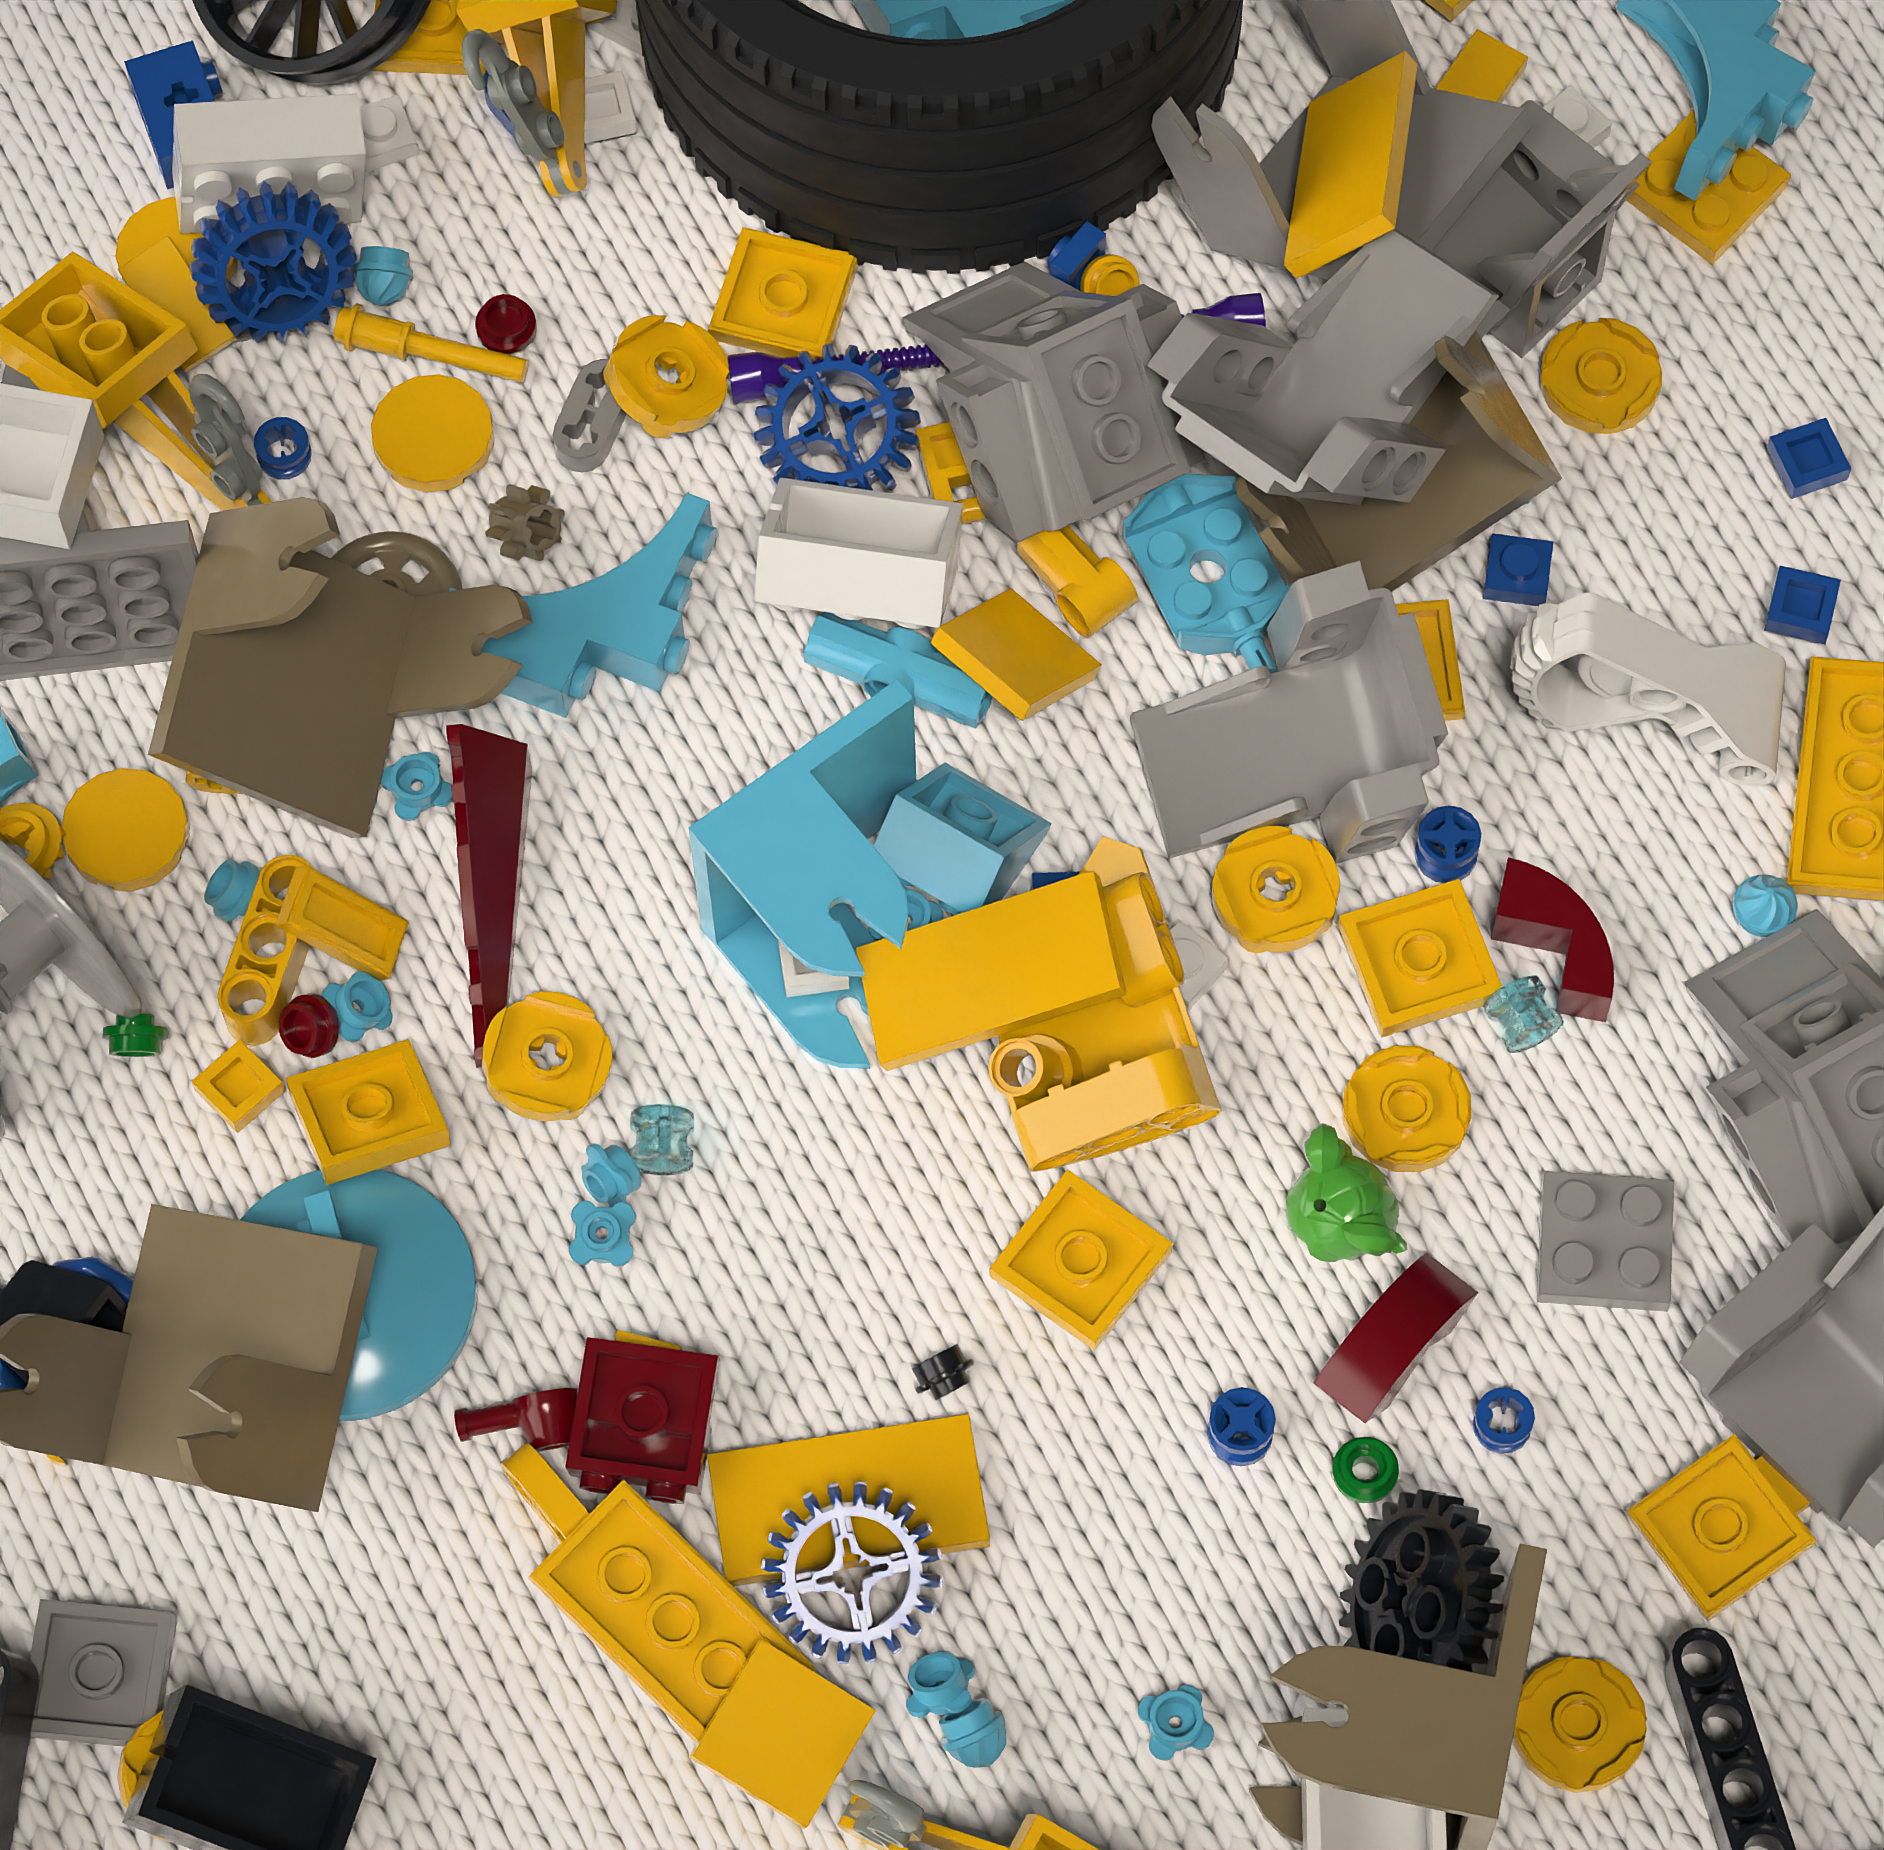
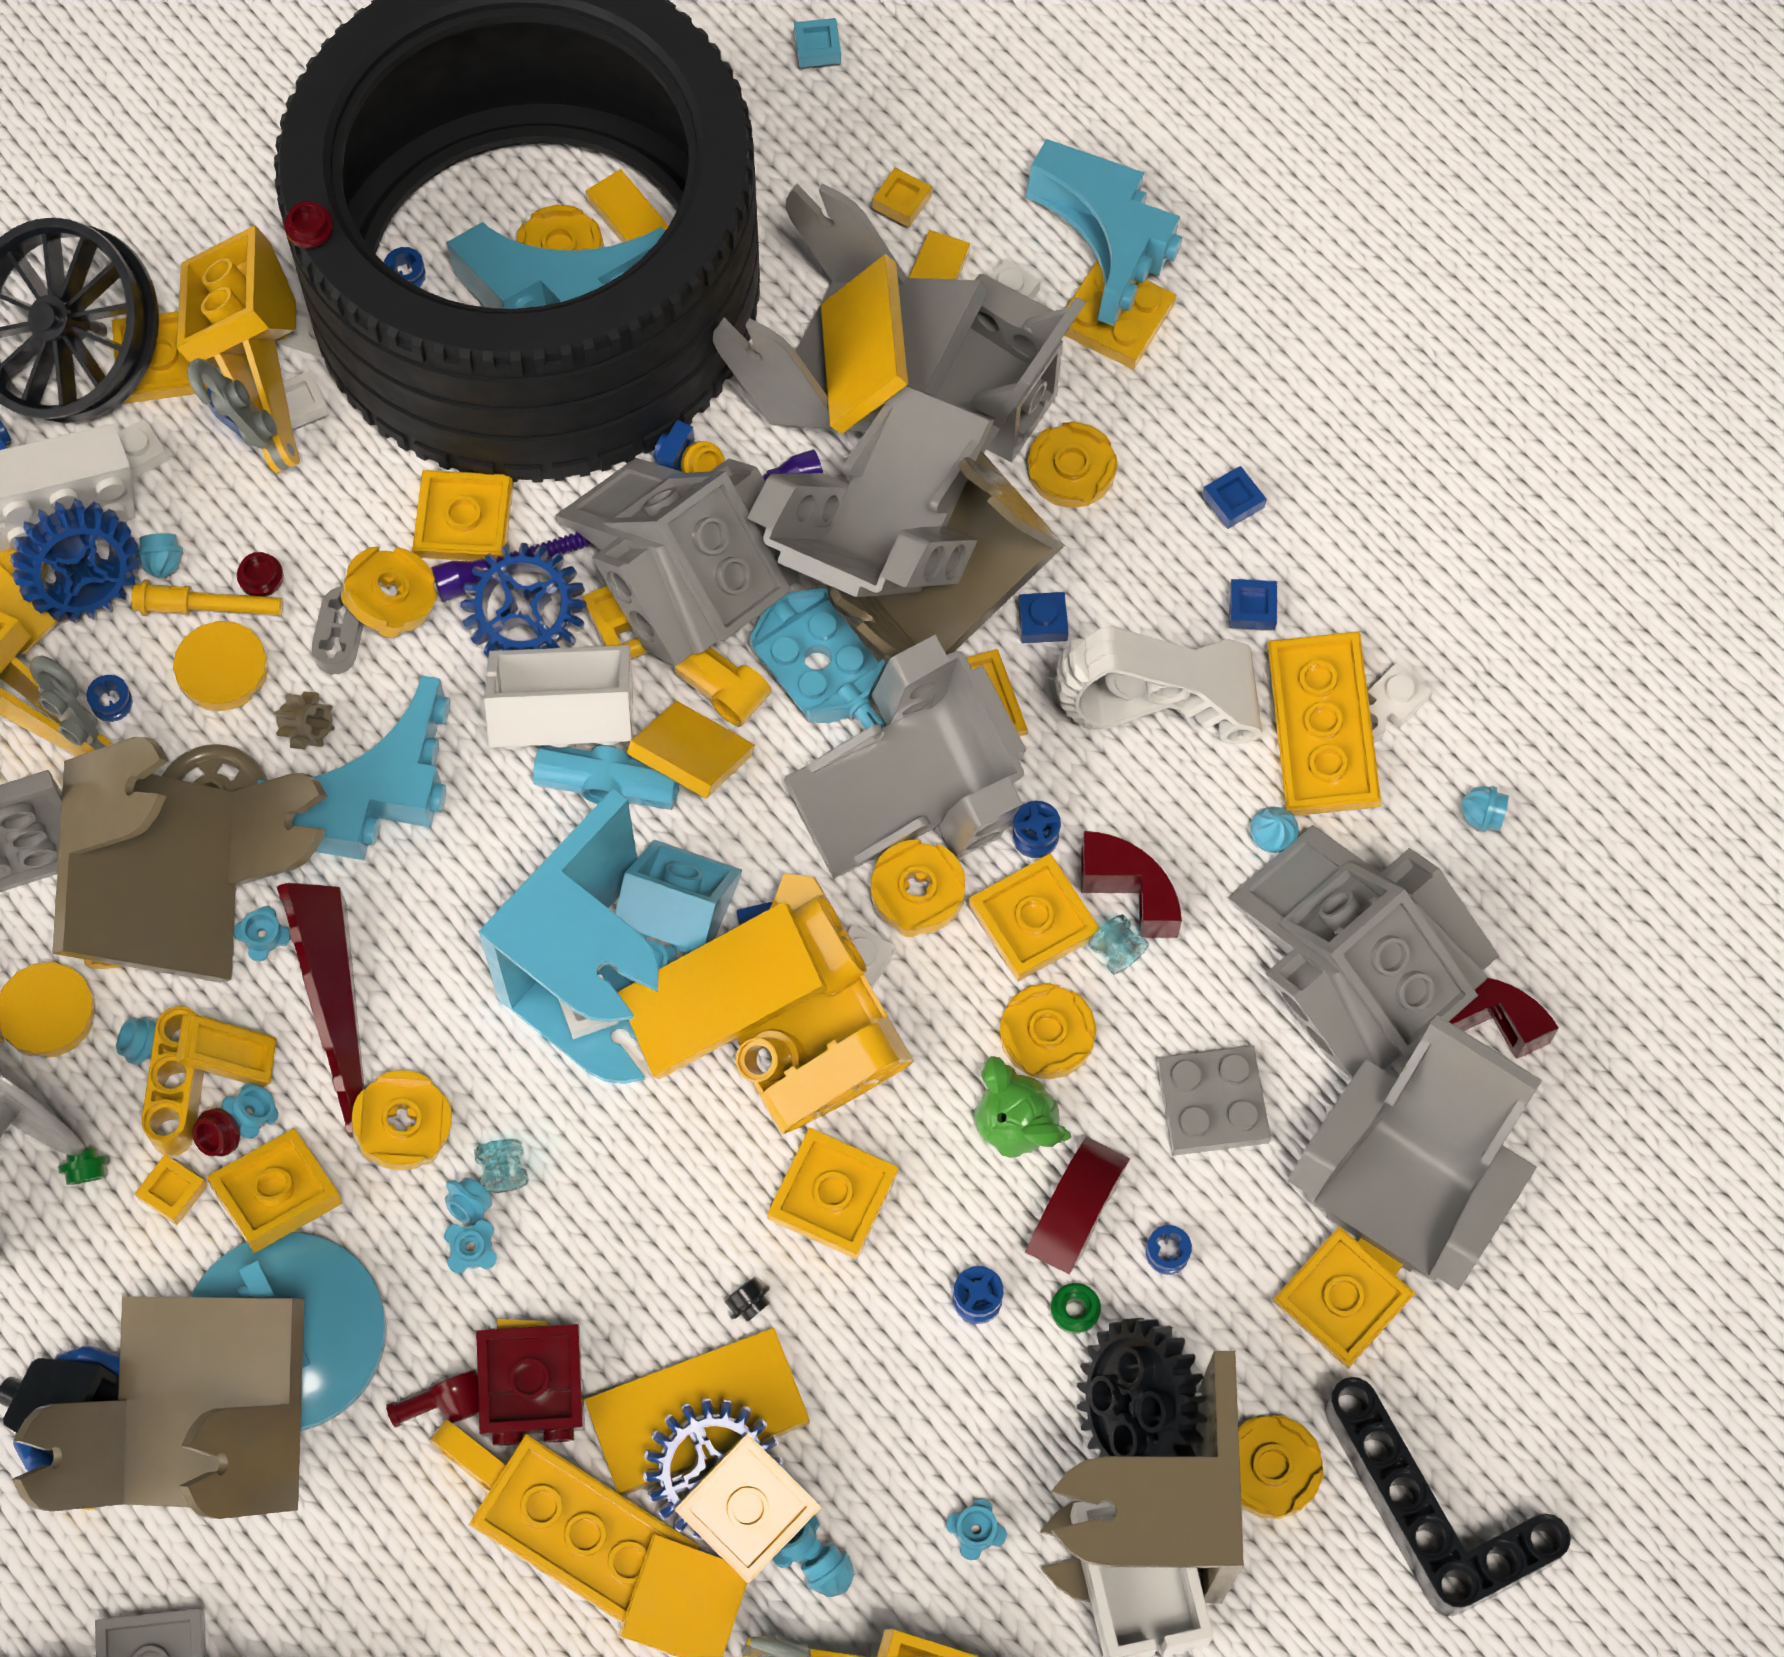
camera: 15 degrees left, 0 degrees up
(885, 1629) = (747, 1507): none -> tile

